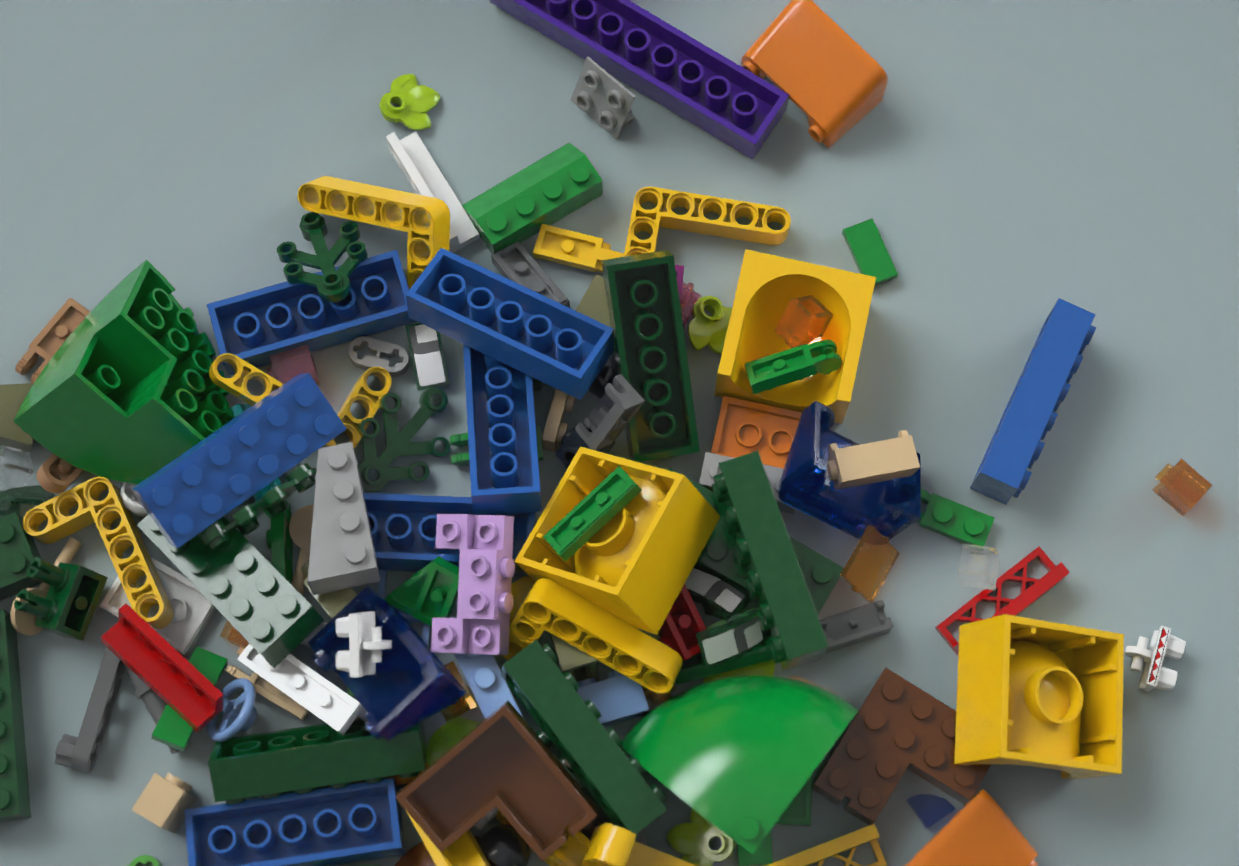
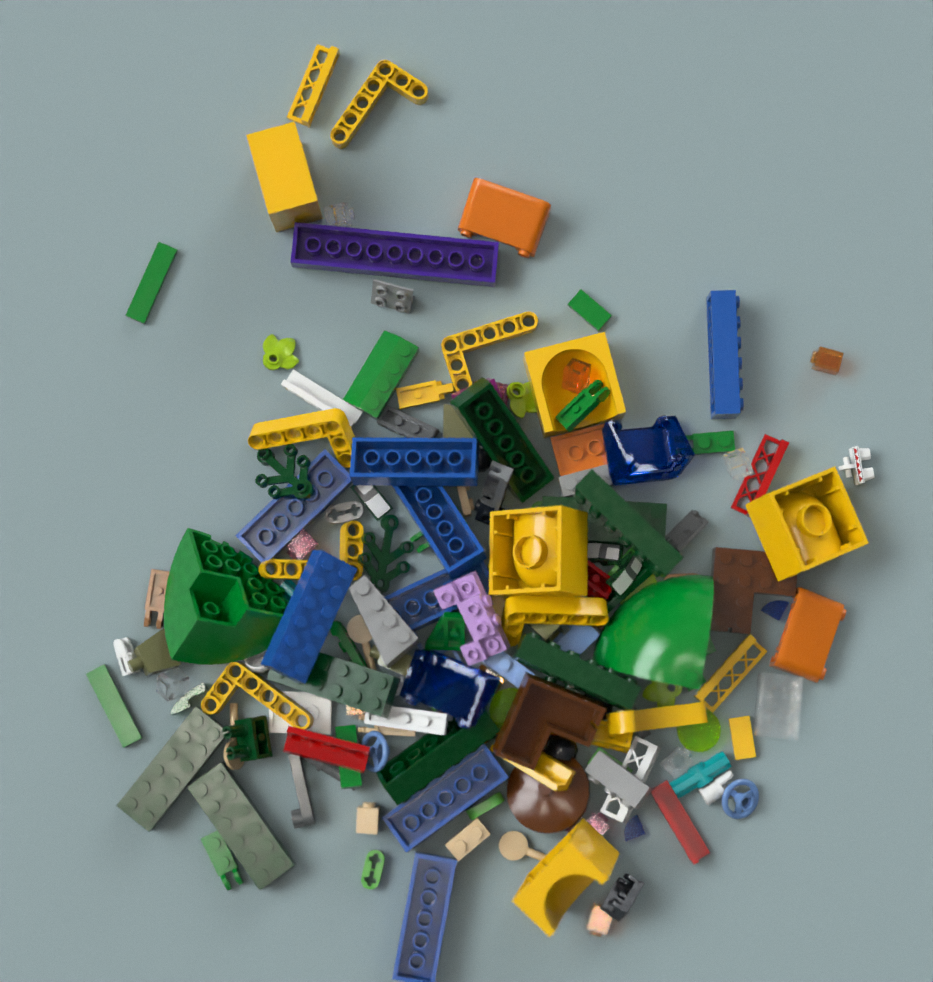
camera: 25 degrees left, 10 degrees up
(57, 474) = (205, 674): medium nougat plate -> none
(273, 501) = (346, 610): dark green plant -> none
(364, 644) = (432, 680): white hips -> none
(592, 513) = (519, 548): green tile -> none
(870, 564) = (678, 492): clear orange piece -> none
(872, 461) = (653, 436): tan brick -> none

